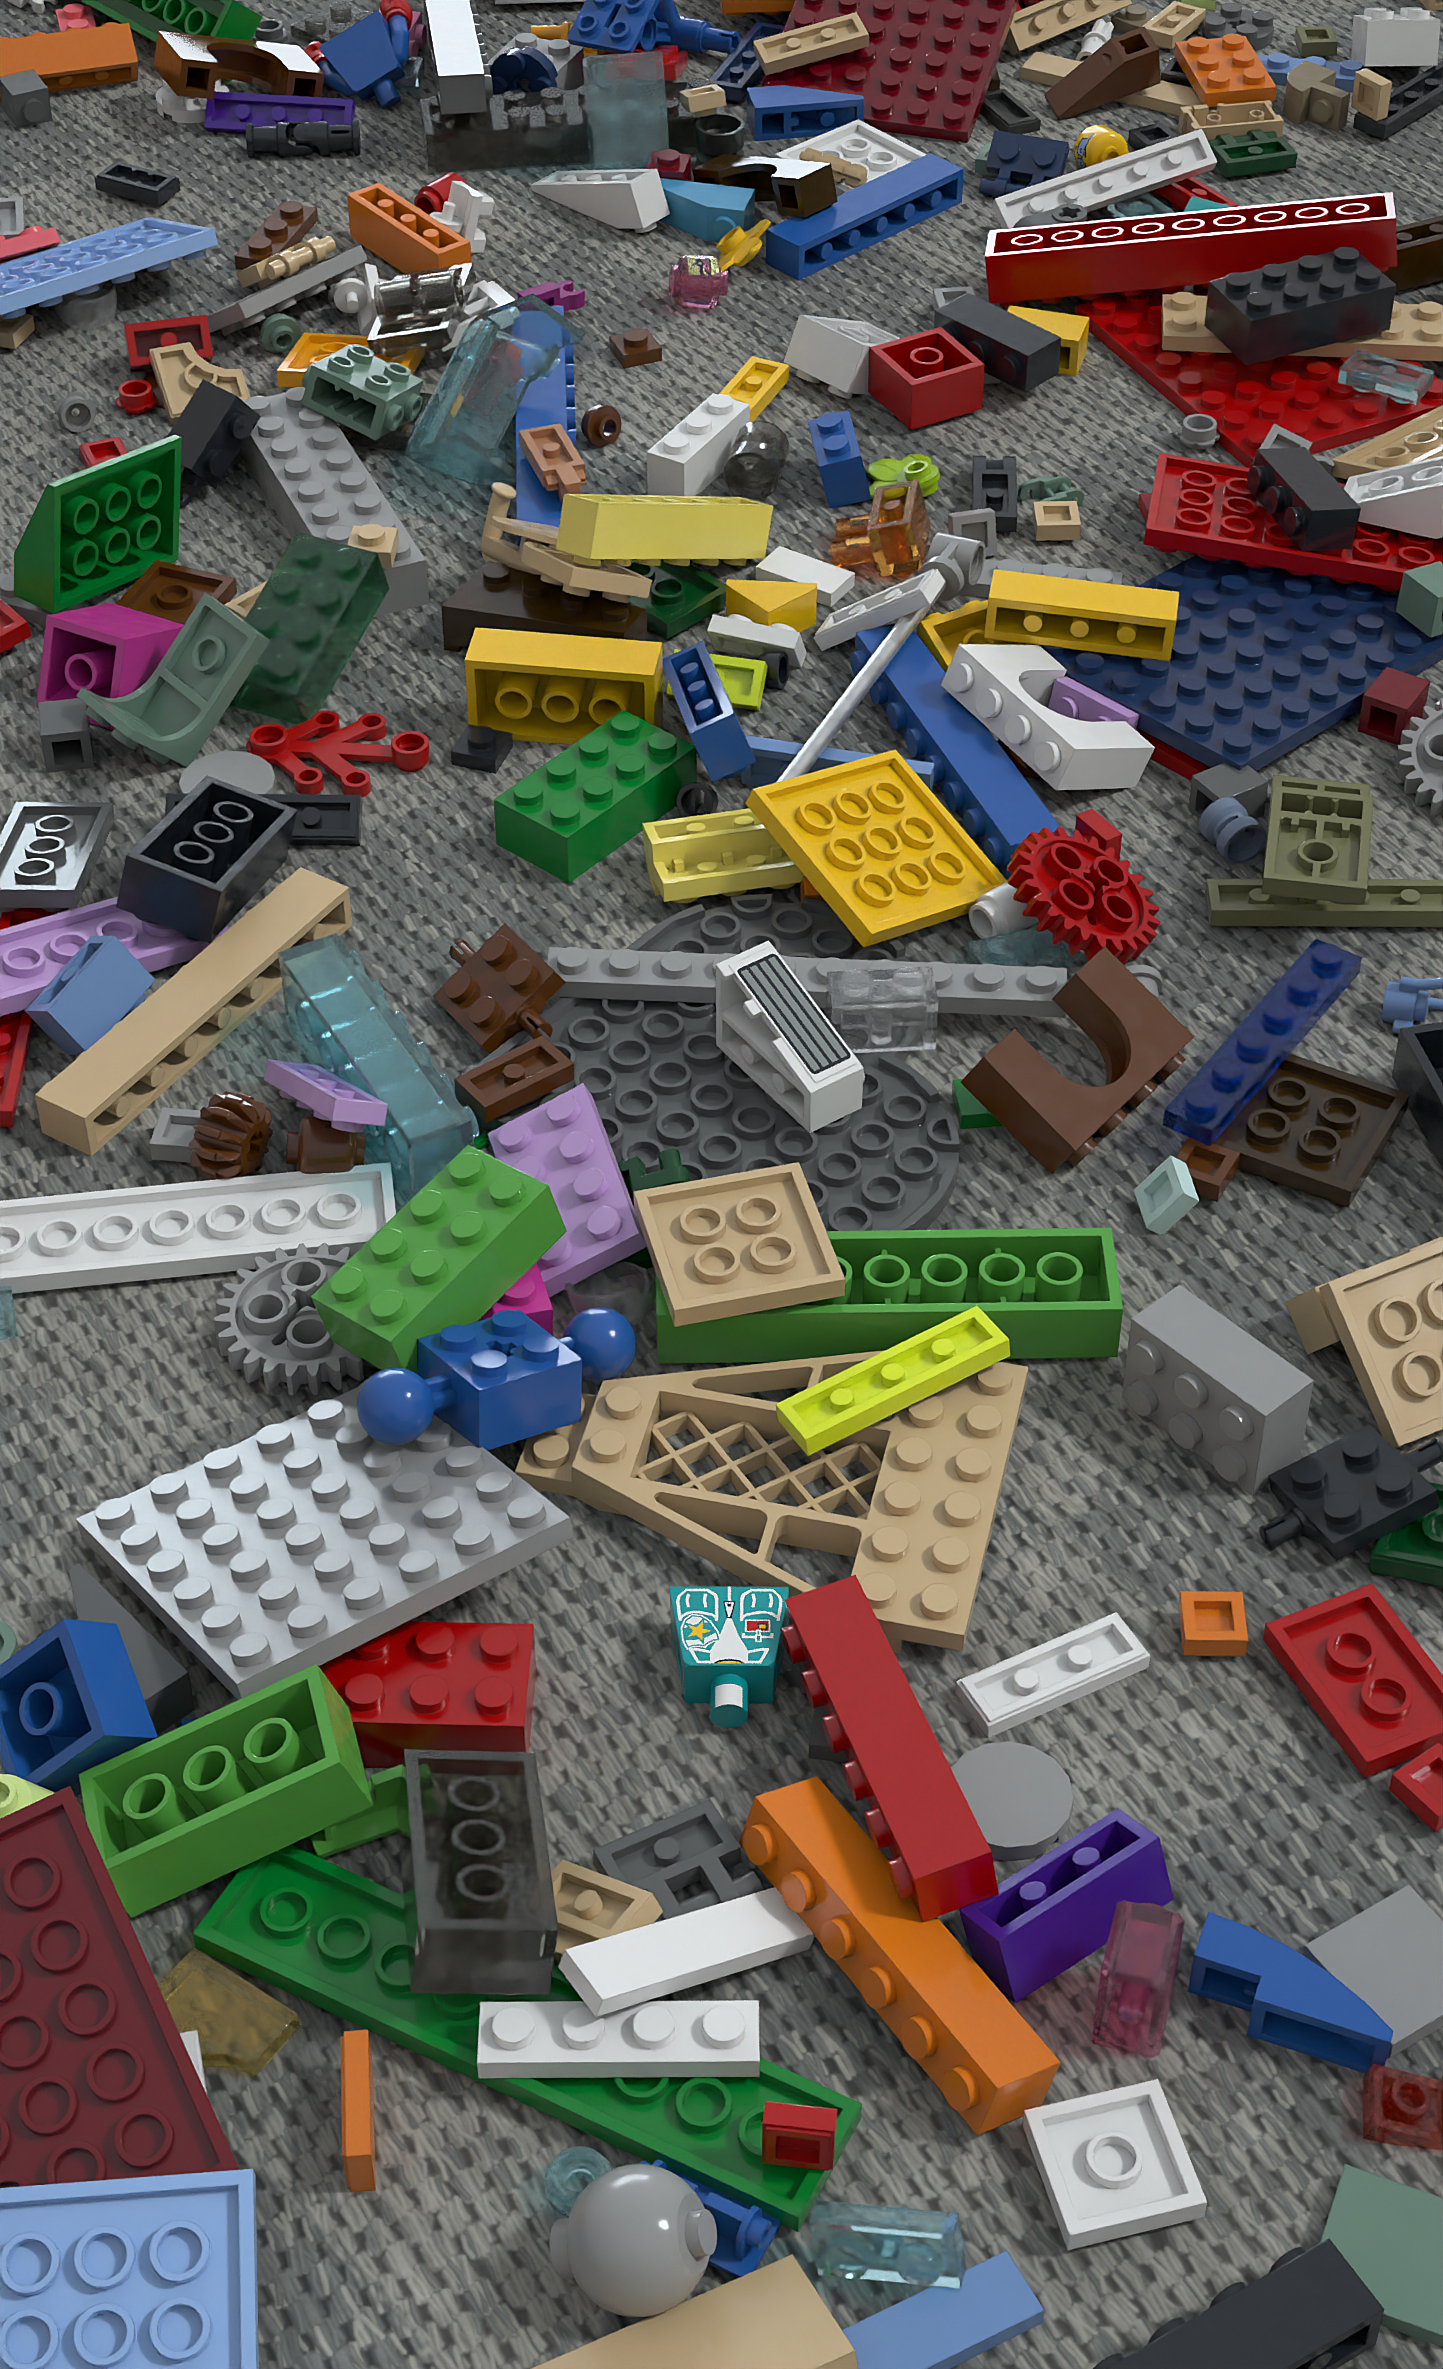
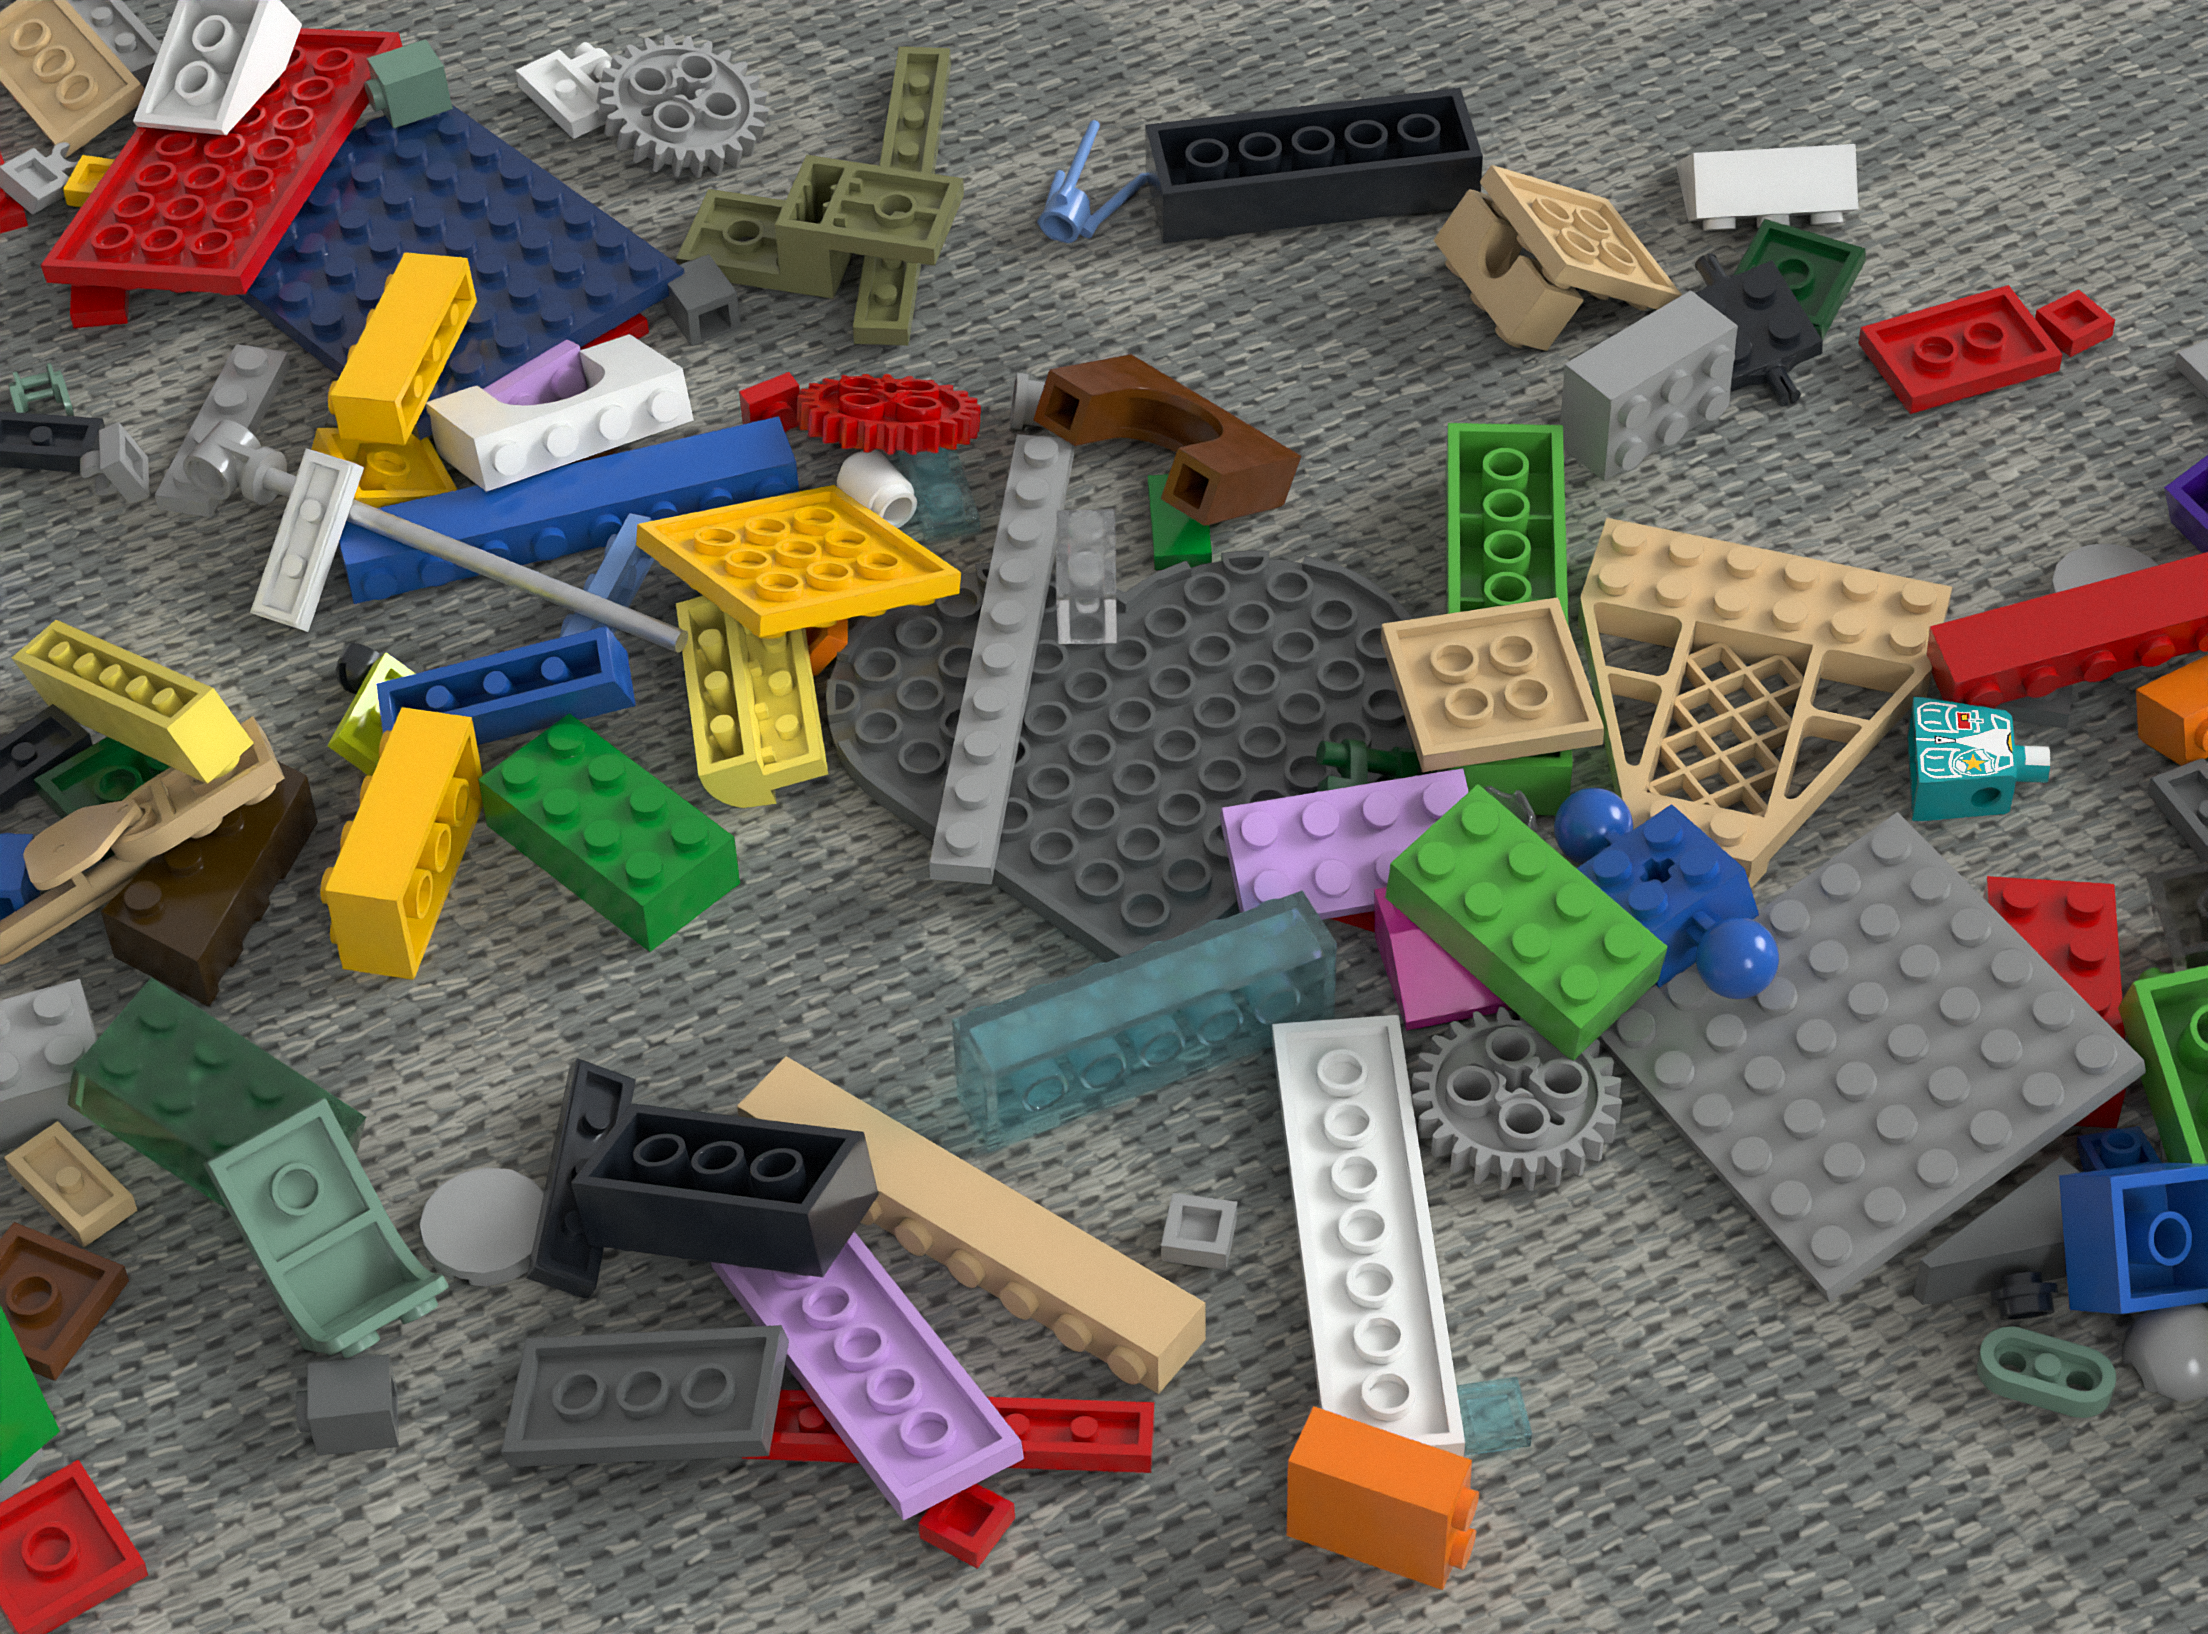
camera: 85 degrees left, 5 degrees up
(90, 994) = (971, 1311): medium blue brick -> none
(102, 650) = (193, 1358): dark pink slope -> none
(230, 1137) = (1239, 1162): reddish brown gear -> none
(324, 1149) = (1246, 1080): reddish brown head -> none
(326, 1094) = (1192, 1058): lavender plate -> none
(336, 745) = (436, 1113): red plant -> none
(376, 539) = (65, 1019): tan plate -> none
(481, 748) = (458, 959): black plate -> none
(499, 989) = (985, 919): reddish brown plate -> none
(514, 1079) = (1159, 890): reddish brown plate -> none
(690, 799) = (628, 739): black hinge -> none
(743, 637) = (317, 654): white plate -> none
(773, 602) = (242, 657): yellow slope -> none
(784, 1039) = (1143, 651): white wedge -> none
(791, 566) = (161, 623): white tile -> none
(889, 536) = (110, 521): clear orange brick -> none
(892, 1380) = (1657, 597): neon yellow plate -> none
(1052, 1674) = (1959, 549): white tile -> none
(1056, 520) = (106, 391): tan plate -> none
(1166, 1195) = (1349, 409): light aqua plate -> none
(1209, 1167) = (1304, 382): reddish brown plate -> none
(1212, 1623) = (1904, 437): orange plate -> none
(1232, 831) = (767, 302): sand blue wheel -> none
(1261, 1042) = (1137, 308): clear blue plate -> none
(1304, 499) = (214, 143): black brick -> none
(1315, 1129) = (1241, 307): dark brown plate -> none
(1391, 704) = (567, 151): dark red brick -> none

